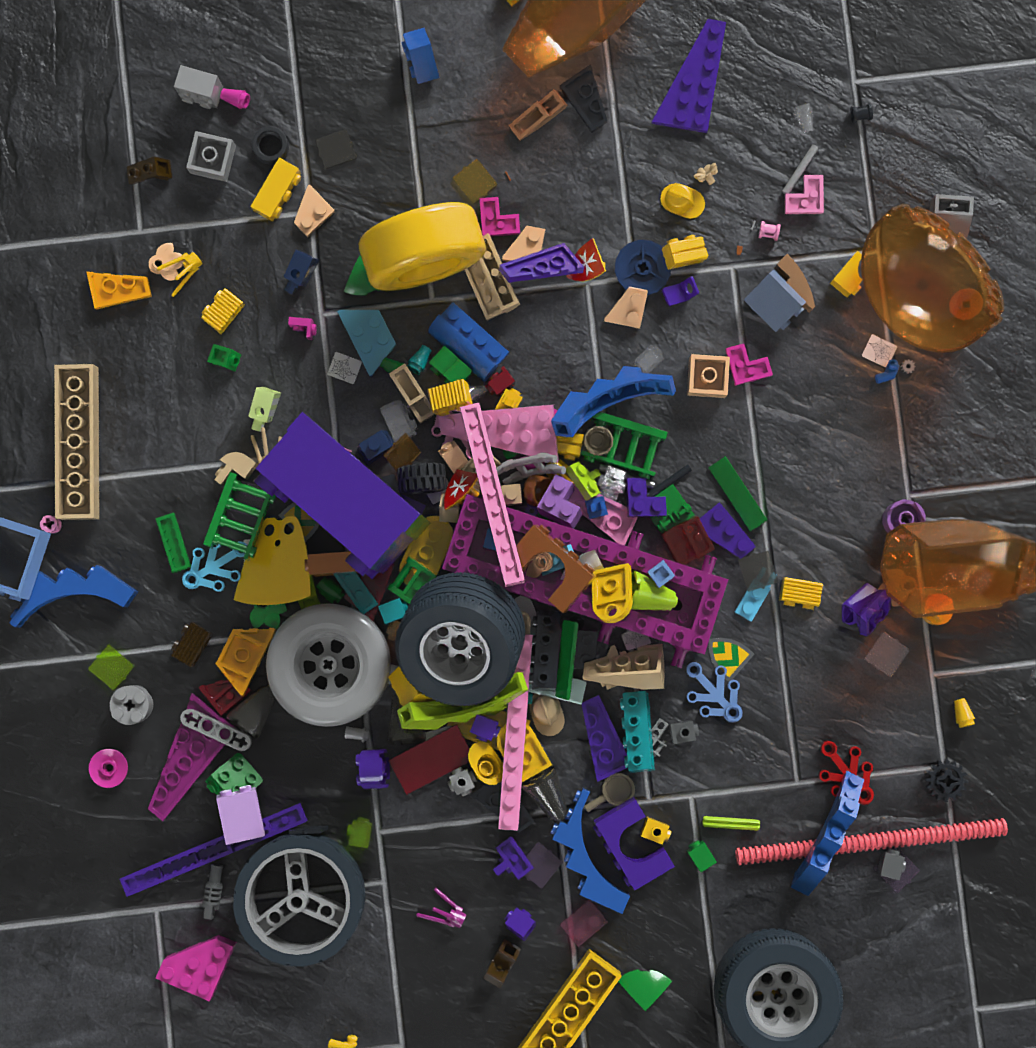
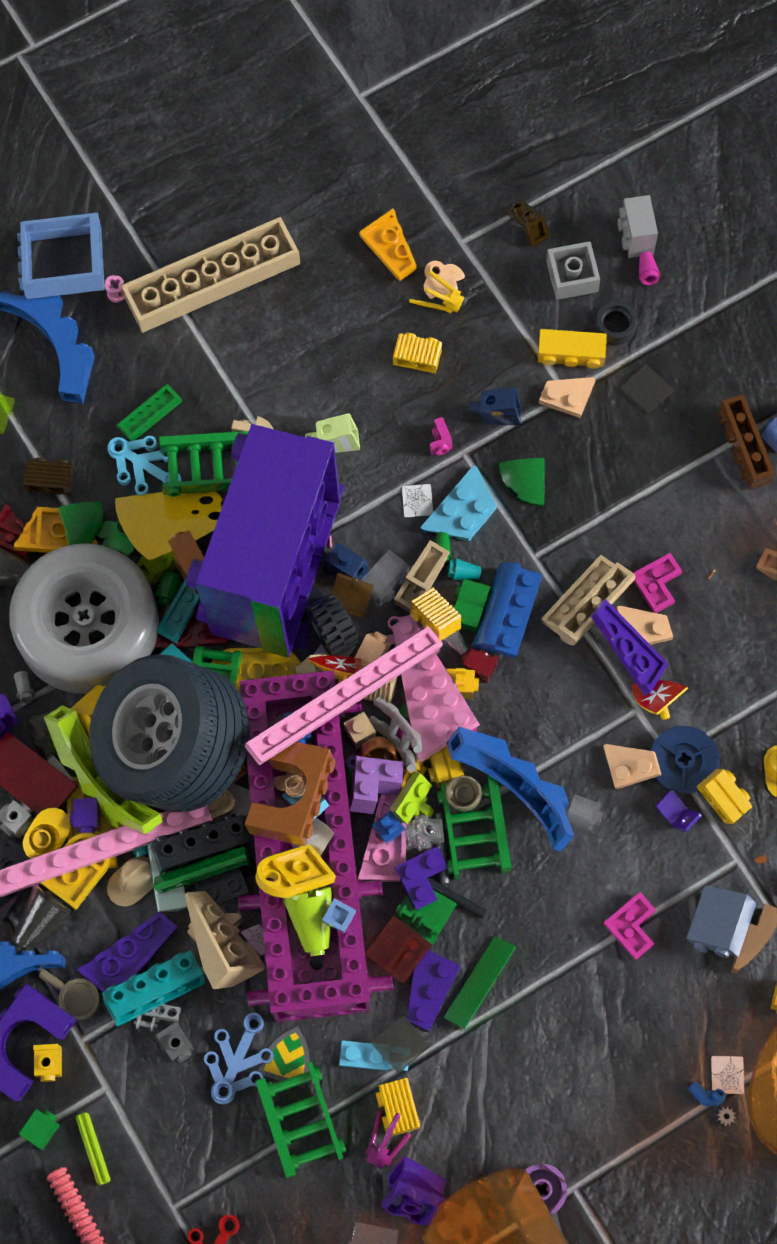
camera: 70 degrees right, 15 degrees down
(224, 357) = (369, 377): green bracket -> none
(245, 635) = (81, 521): none -> green brick
(418, 96) = (746, 441): none -> reddish brown brick
(421, 246) = (581, 503): yellow wheel -> none
(475, 181) = (687, 542): clear yellow piece -> none
(708, 376) = (597, 885): light nougat brick -> none
(786, 683) = (276, 1114): none -> green fence
(827, 620) = (378, 1154): none -> magenta plant

